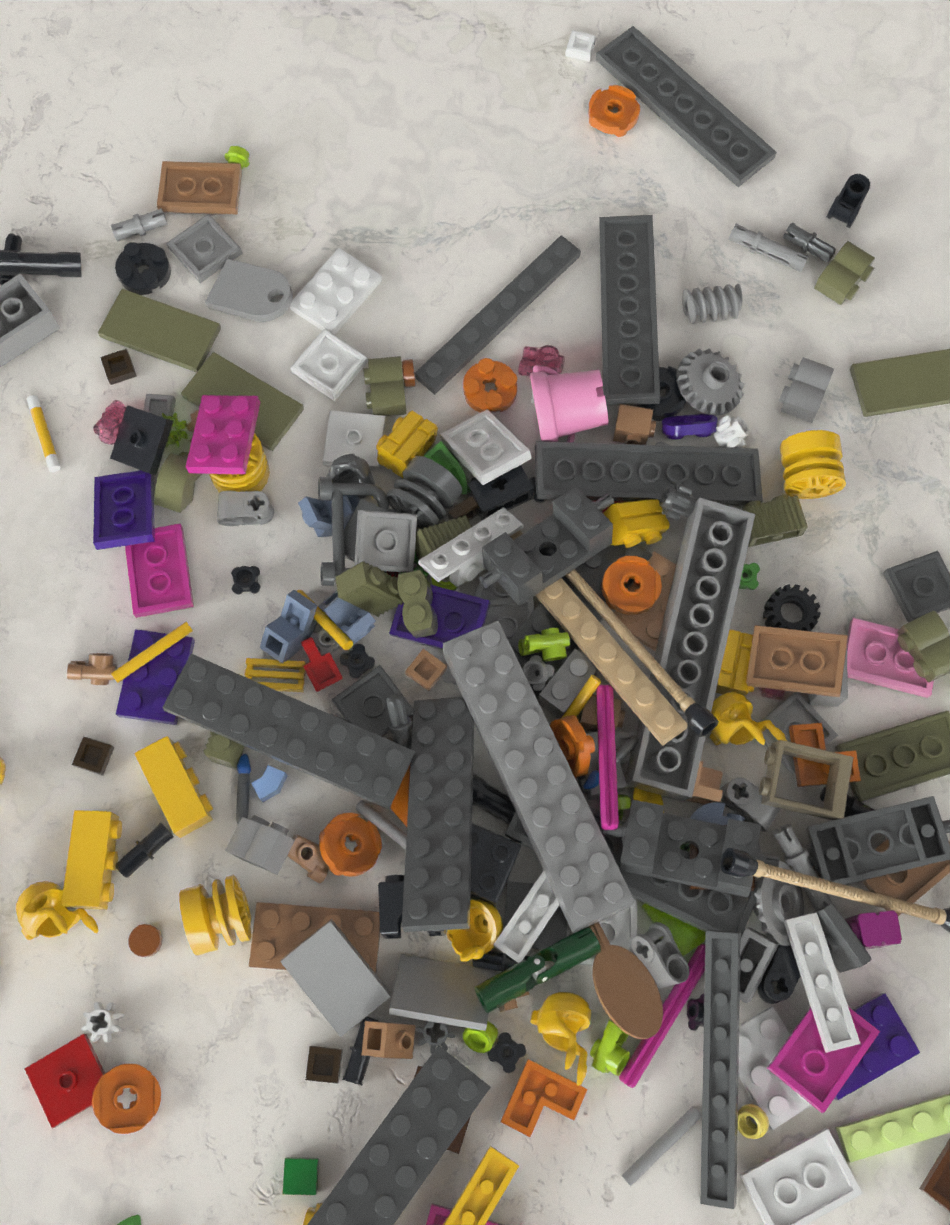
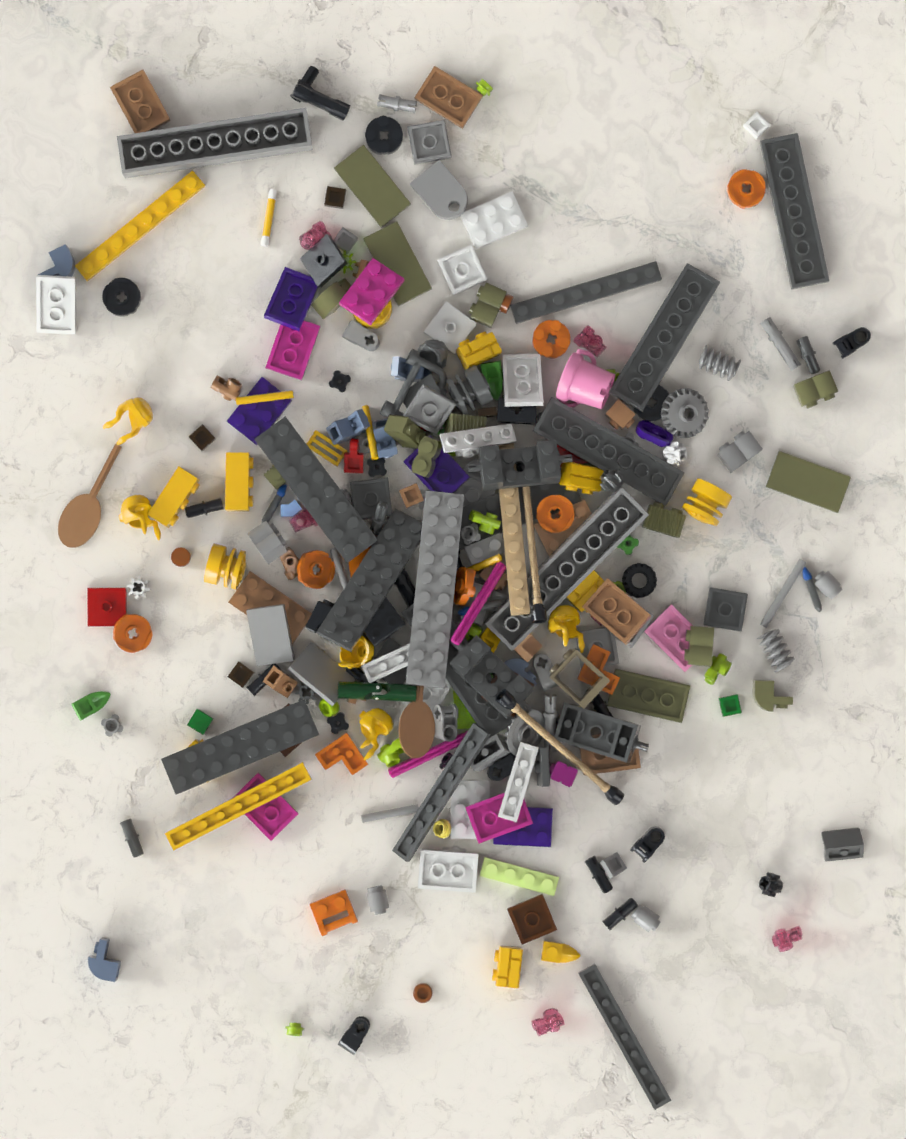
camera: 30 degrees right, 15 degrees up
(297, 781) = (307, 521): none -> clear pink plate

